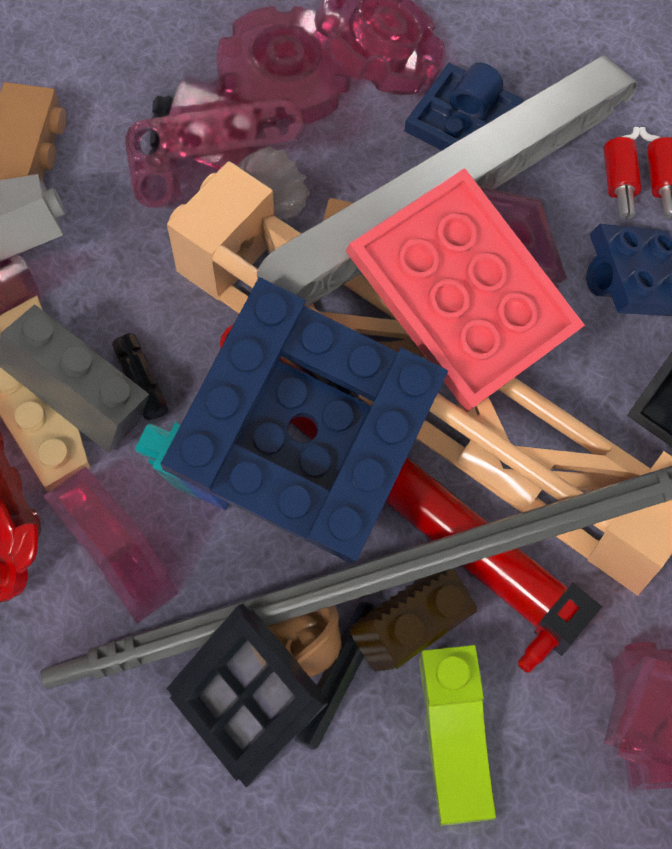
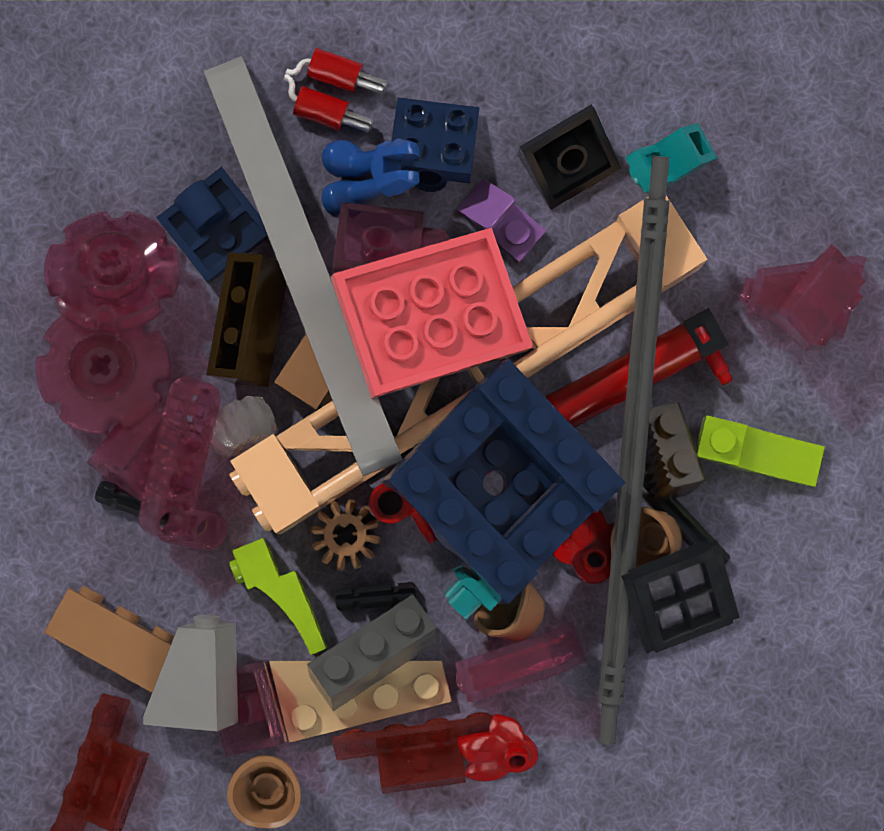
camera: 65 degrees left, 20 degrees up
(131, 254) = (257, 568): none -> lime slope
(165, 514) = (513, 620): none -> medium nougat helmet
(189, 306) = (346, 549): none -> medium nougat gear
(271, 565) = (588, 540): none -> red plate
(365, 159) = (247, 320): none -> dark brown brick
(585, 209) = (349, 162): none -> blue piece
(591, 371) = (511, 226): none -> medium lavender slope

